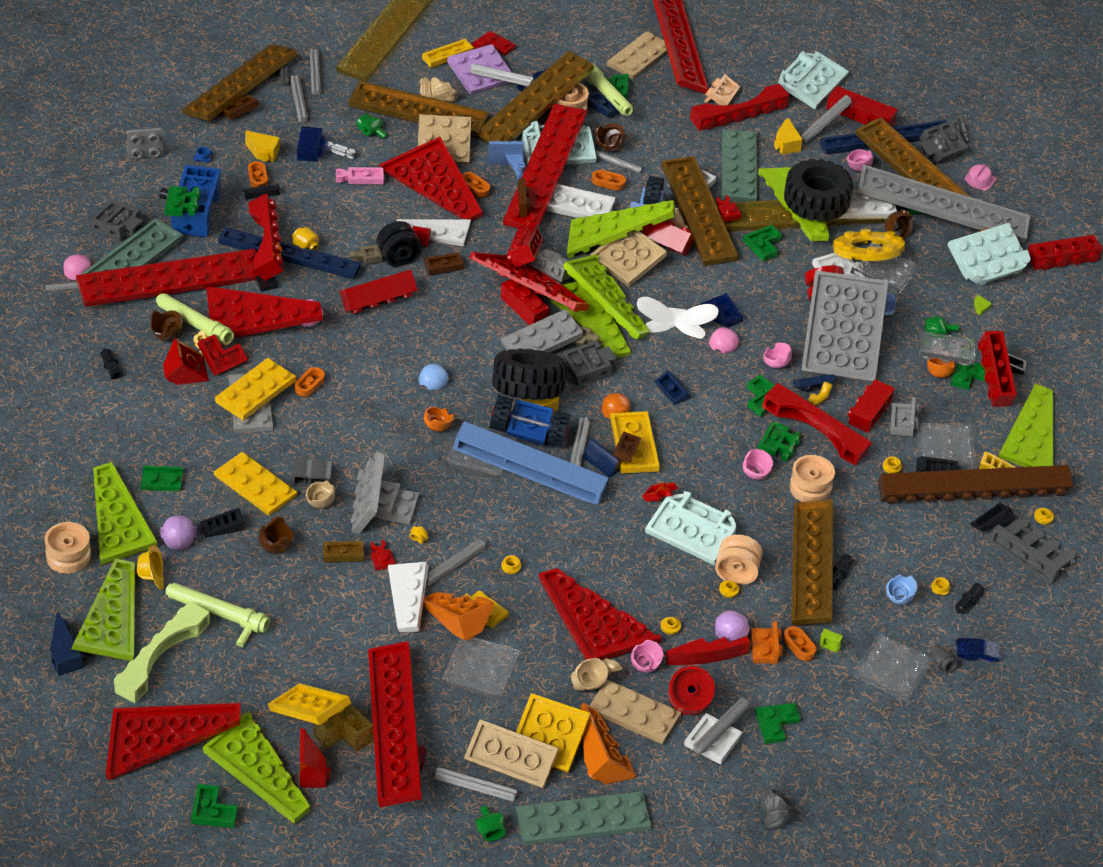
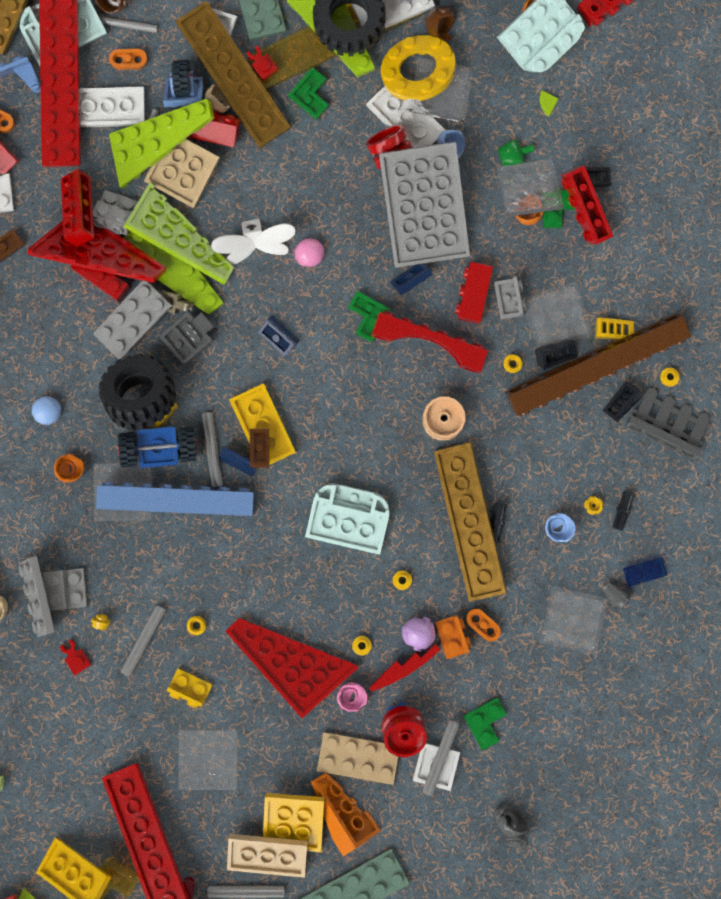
camera: 10 degrees left, 40 degrees up
(343, 551) = (38, 668): pearl gold plate -> none
(408, 593) = (113, 692): white wing -> none
(459, 614) = (170, 713): orange wedge -> none
(523, 193) = (50, 132): reddish brown plate -> none
(593, 673) = (310, 737): tan hair -> none
(615, 404) = (231, 382): orange hair -> none
(657, 491) = (304, 486): red plate -> none
(727, 311) = (295, 211): clear blue wing -> none
(738, 559) = (403, 553): light nougat wheel -> none
(758, 460) = (380, 420): bright pink hair -> none
(775, 436) = (392, 372): green plate -> none
(779, 356) = (367, 250): bright pink hair -> none
(822, 396) = (424, 293): yellow arm -> none
(831, 640) = (511, 613): lime tile -> none
(1032, 434) = (636, 274): lime wing -> none

